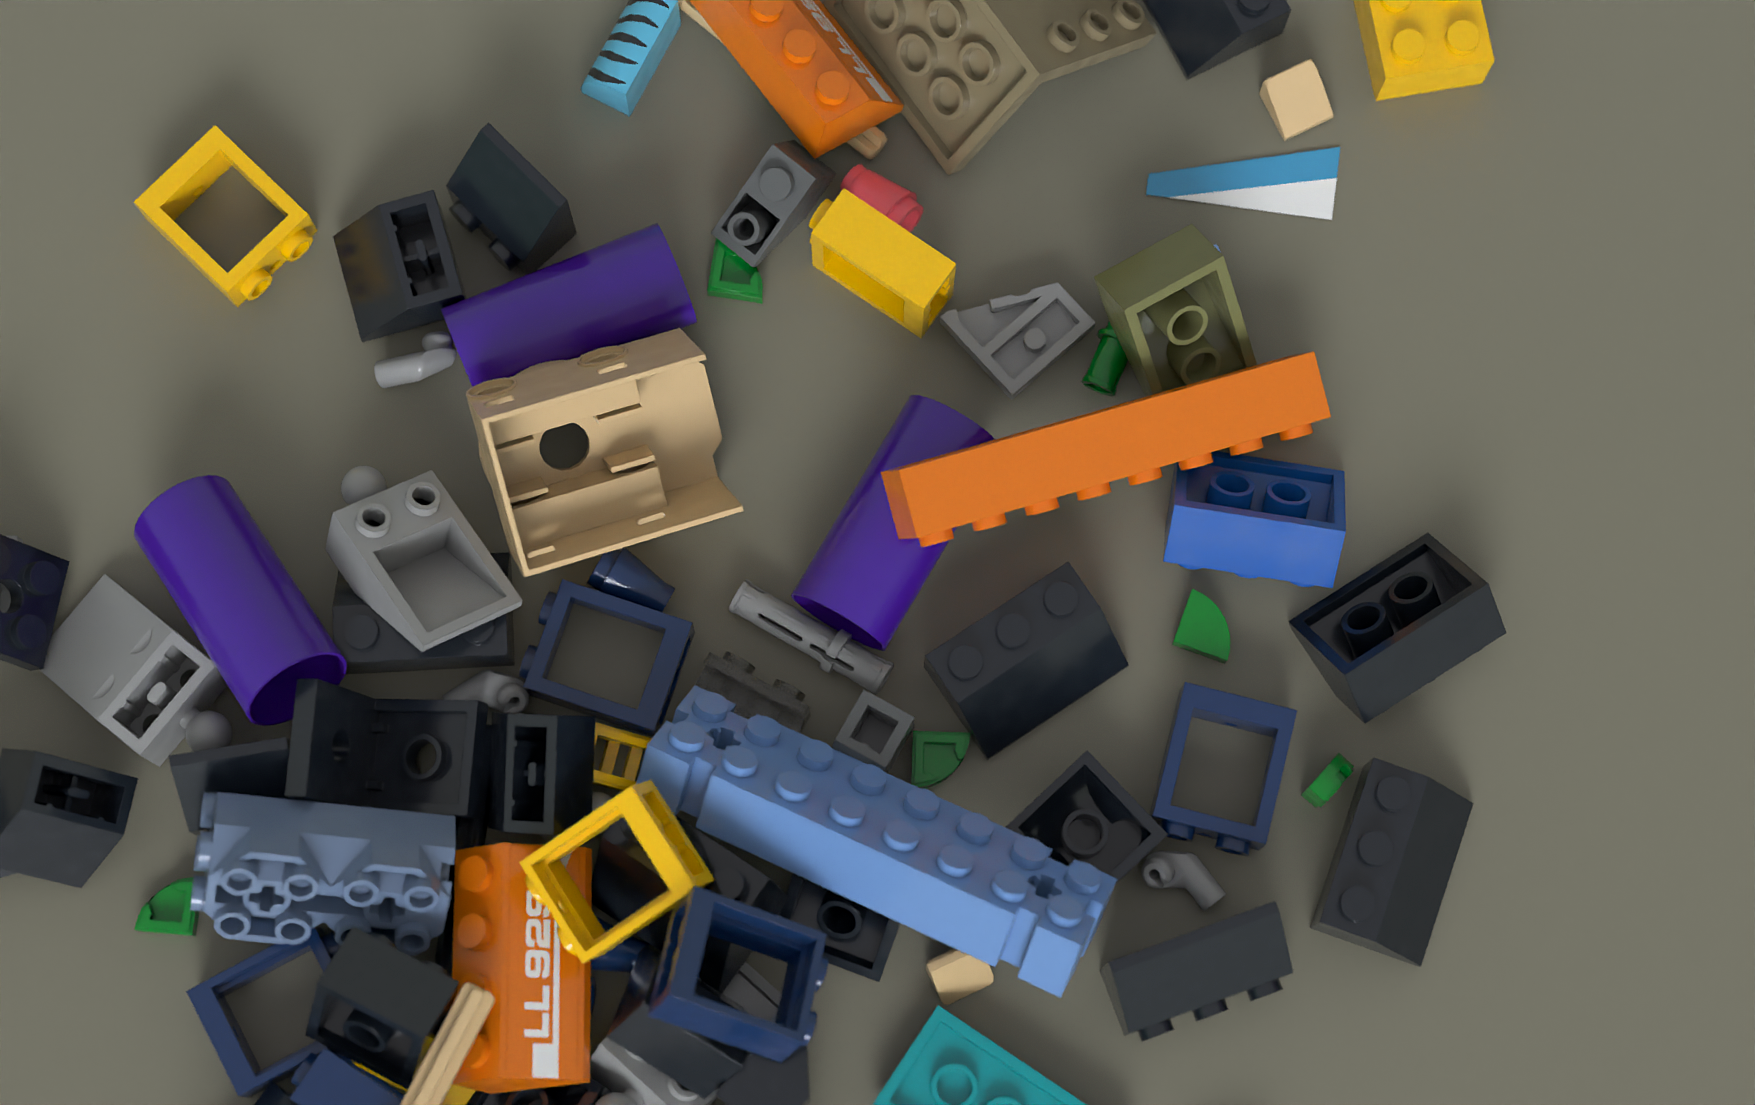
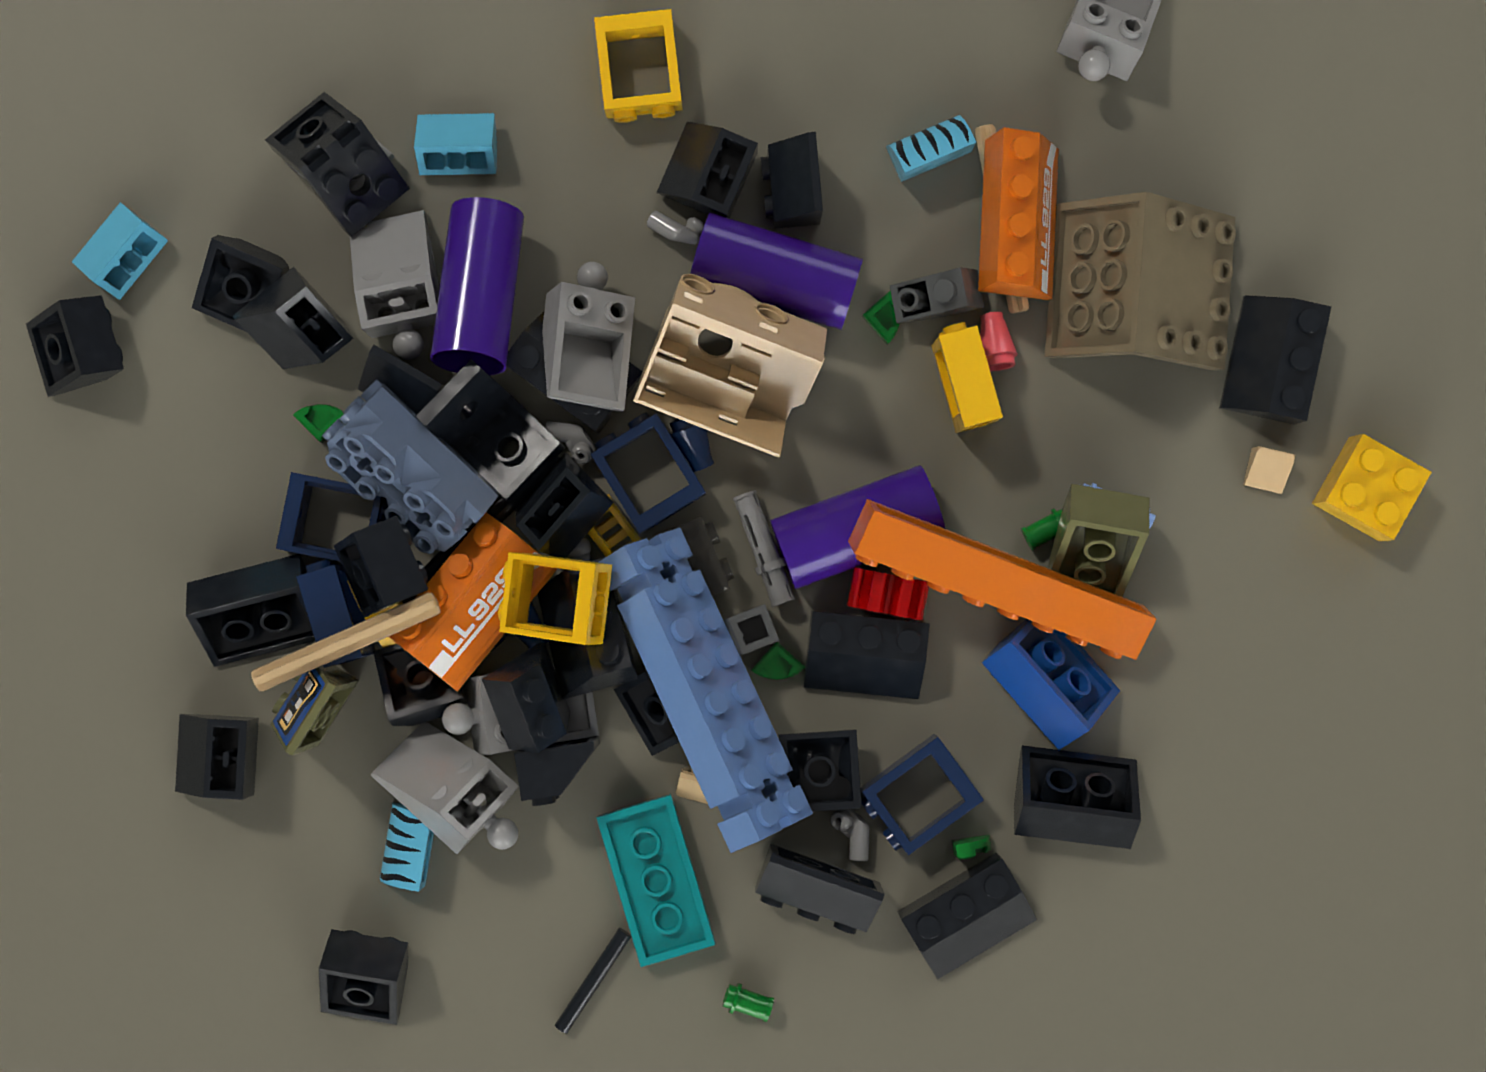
camera: 40 degrees right, 10 degrees up
(84, 468) = (456, 144): none -> medium azure brick
(732, 921) = (550, 675): dark blue window -> none
(993, 567) = (888, 594): none -> red gear
(1019, 335) = (1009, 476): light grey wing -> none
(1203, 629) = (973, 712): green tile -> none
(1281, 184) = (1218, 505): dark azure sticker -> none

